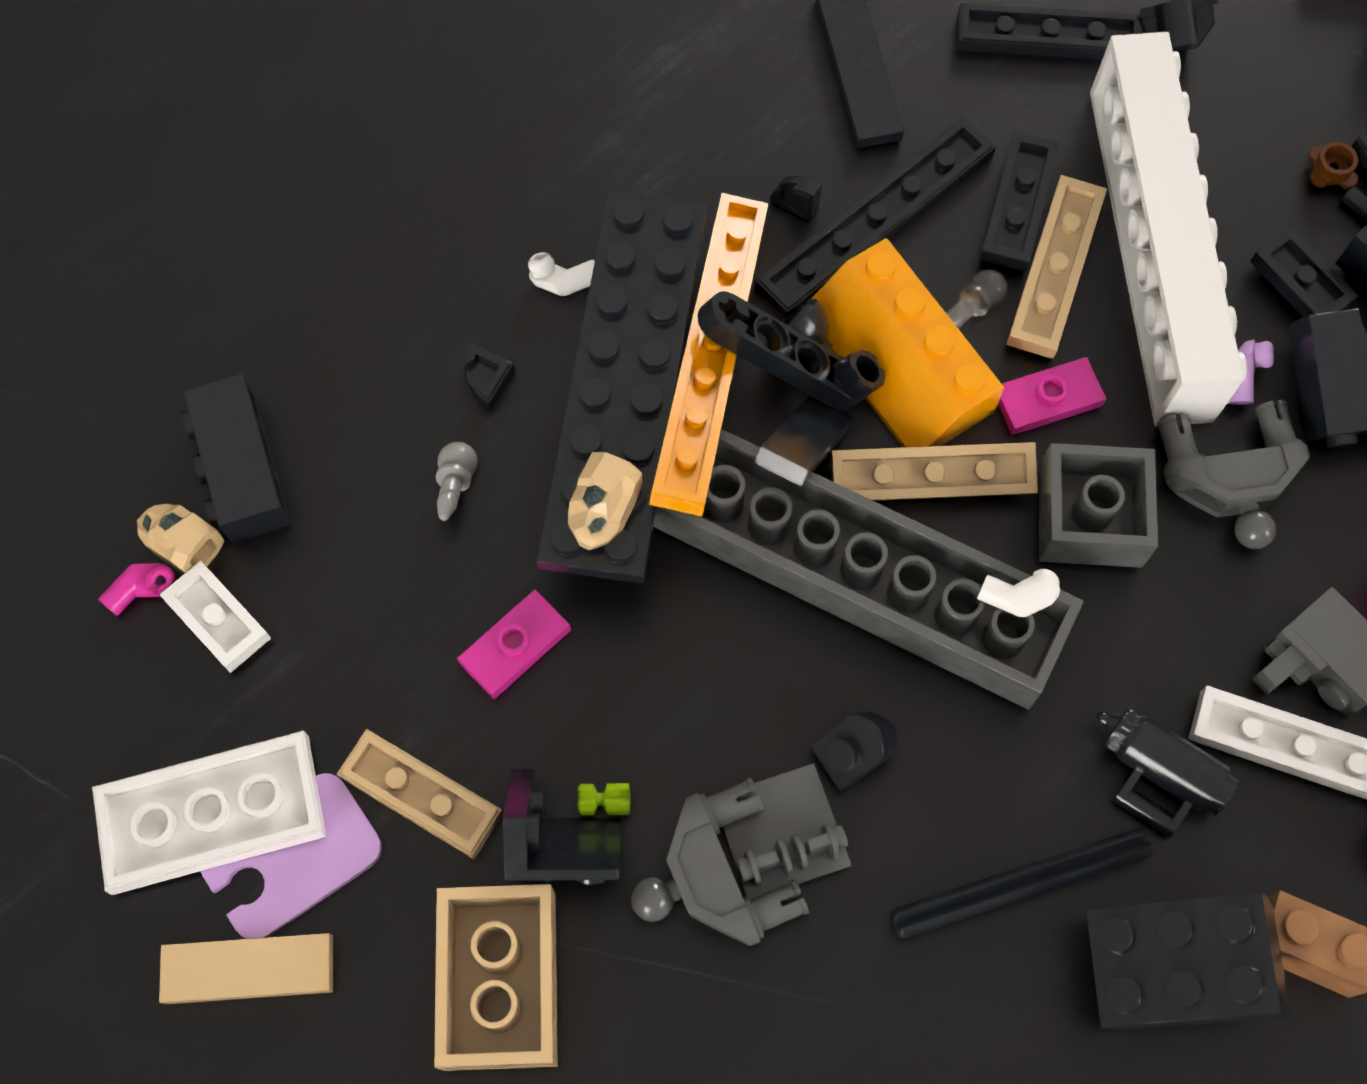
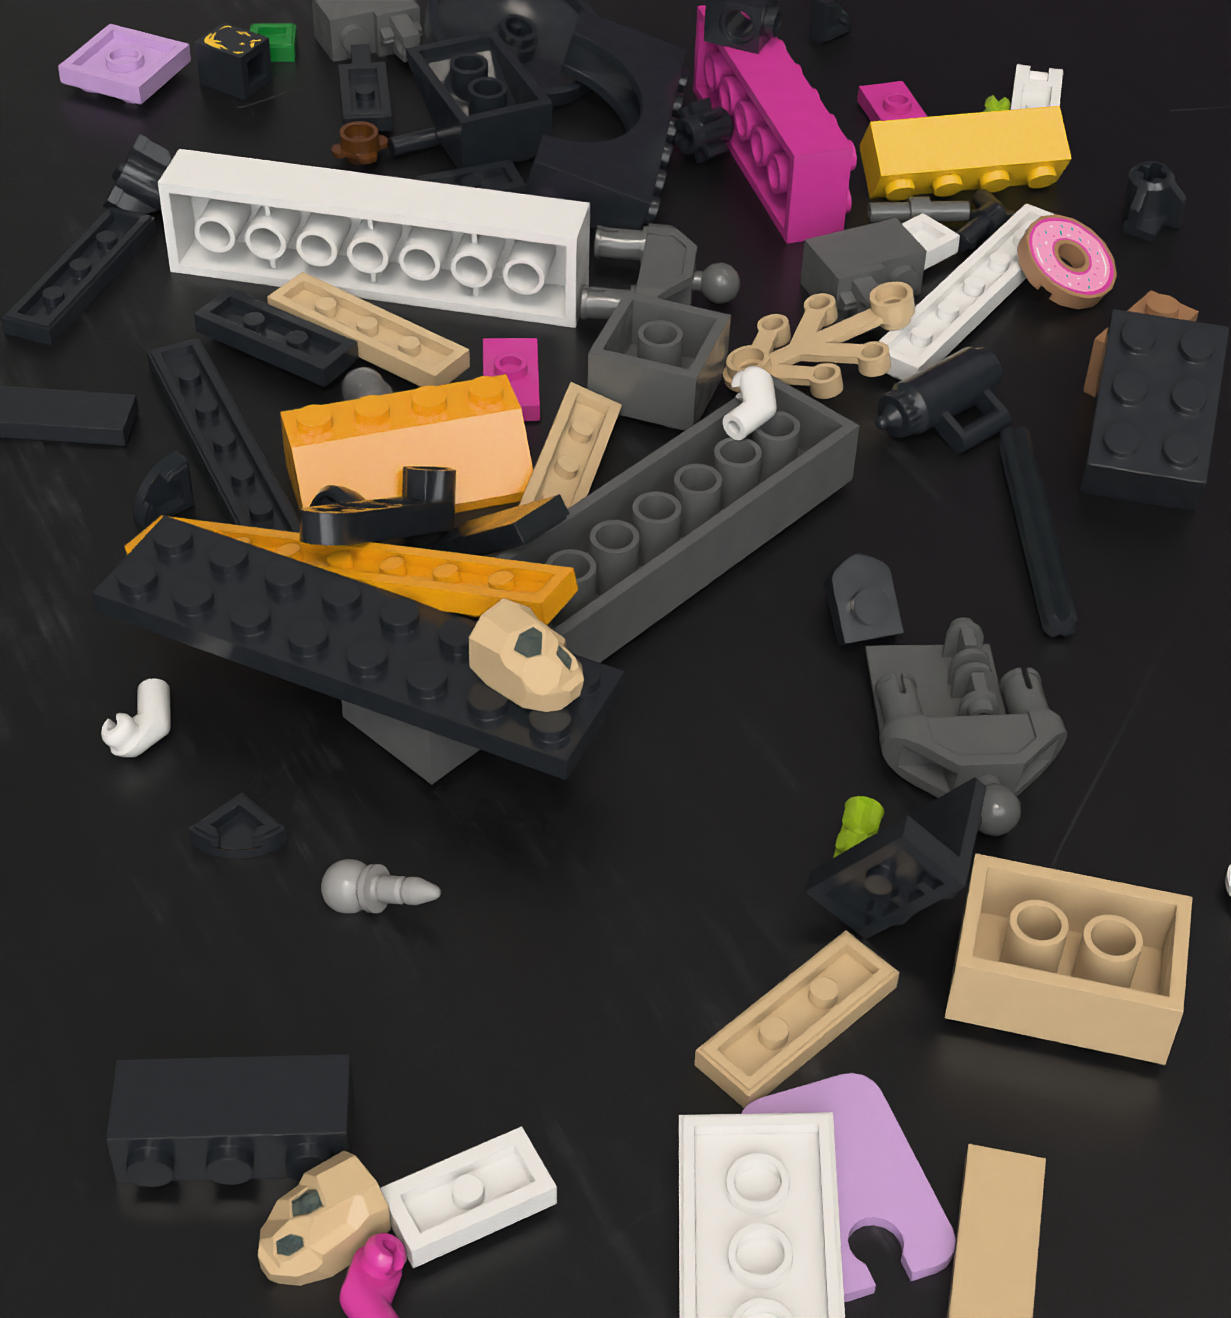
camera: 75 degrees left, 25 degrees down
(514, 644) = (629, 879): dark pink plate -> none
(1194, 632) = (890, 309): none -> tan plant

